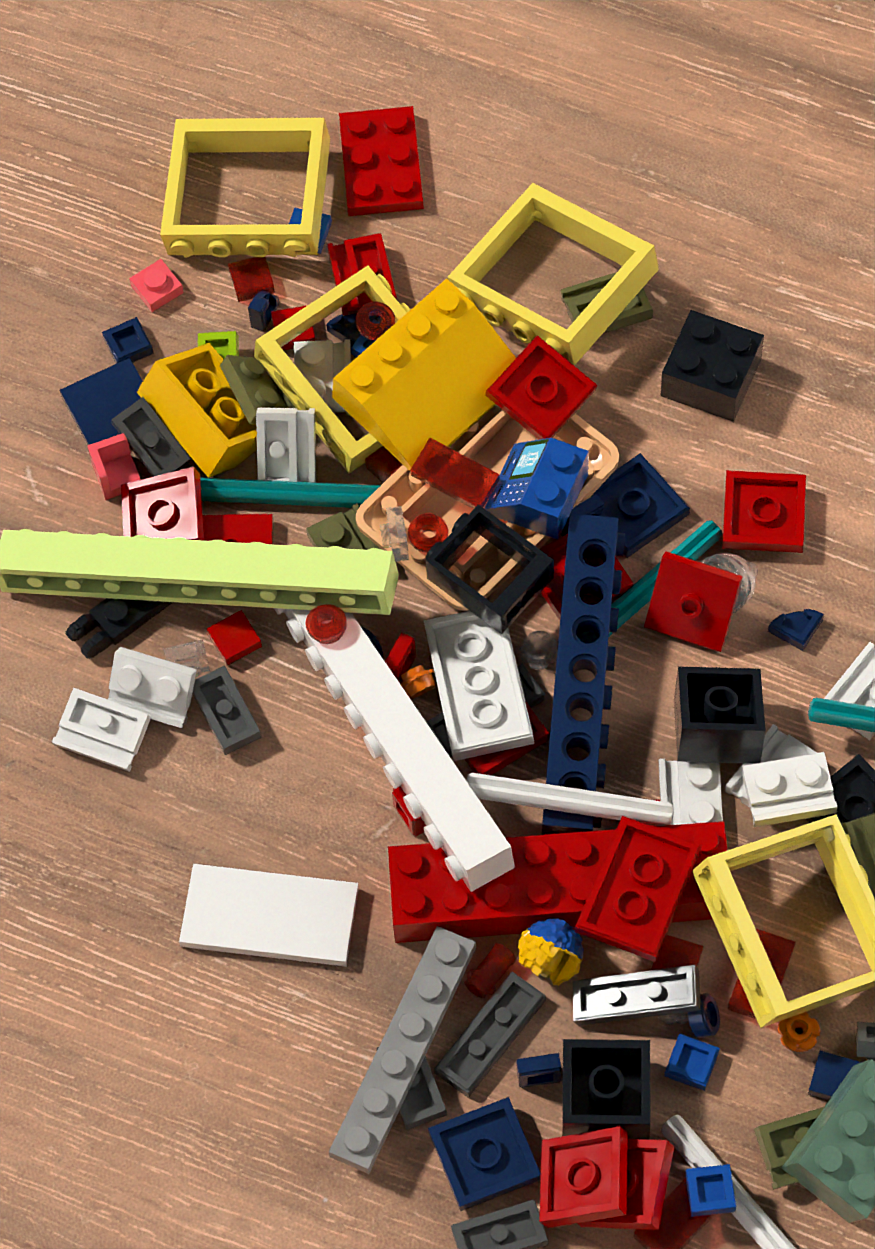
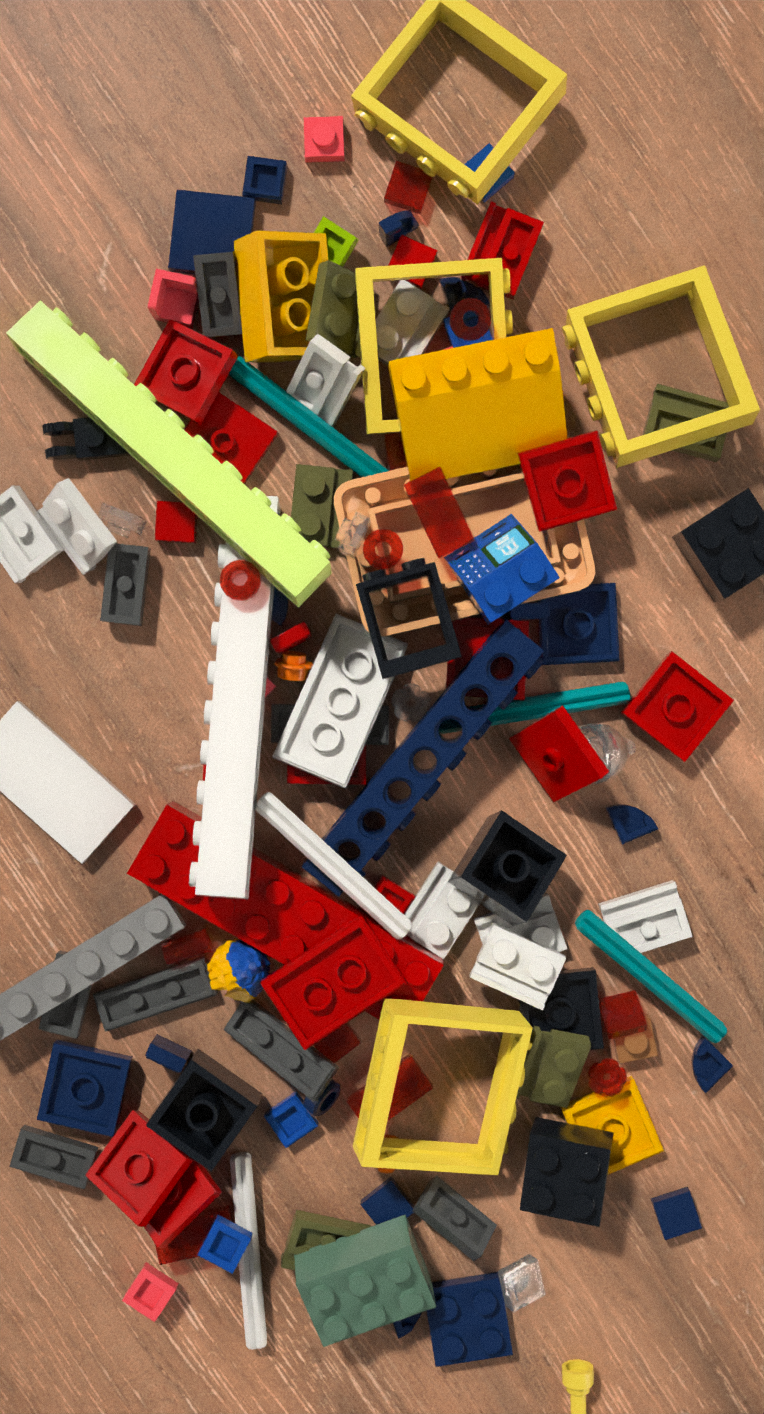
camera: 30 degrees right, 25 degrees up
(381, 161) = (595, 144): red plate -> none

